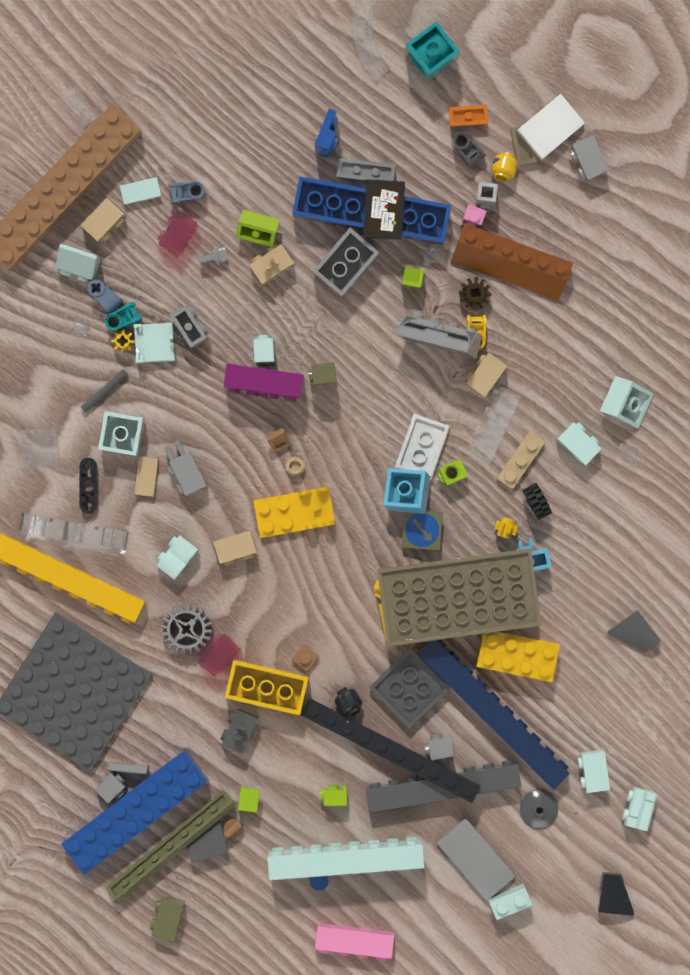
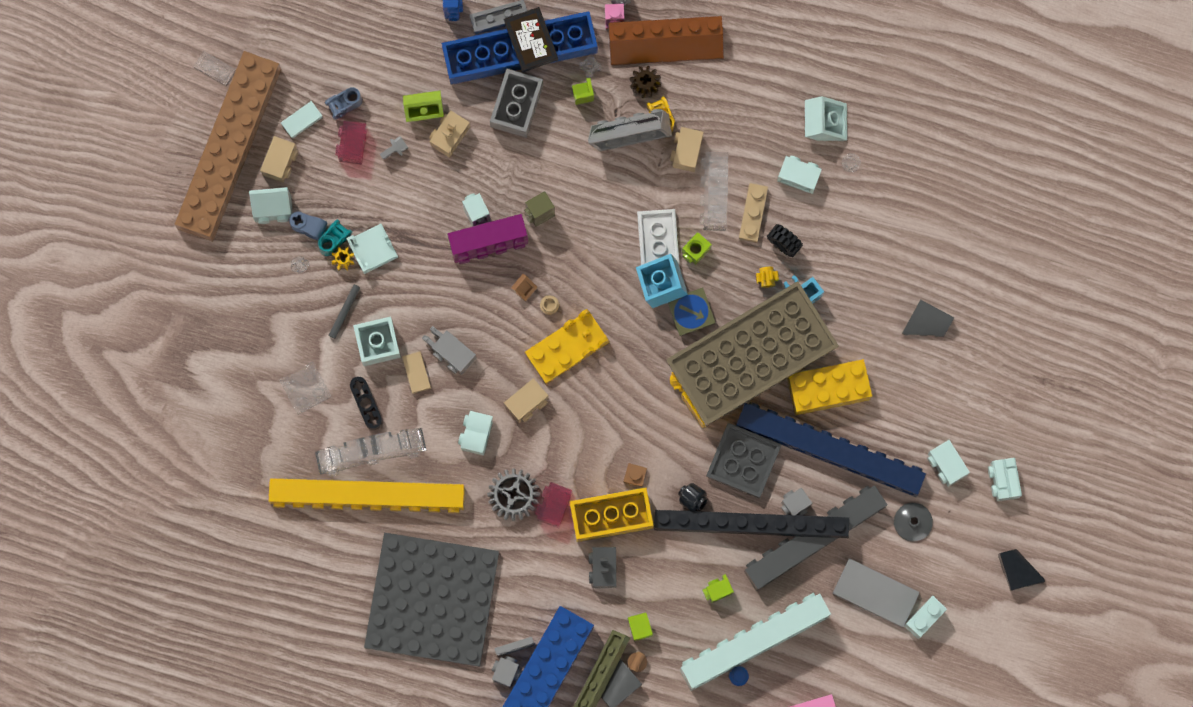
camera: 20 degrees left, 10 degrees down
(188, 326) = (397, 219): light grey brick -> none

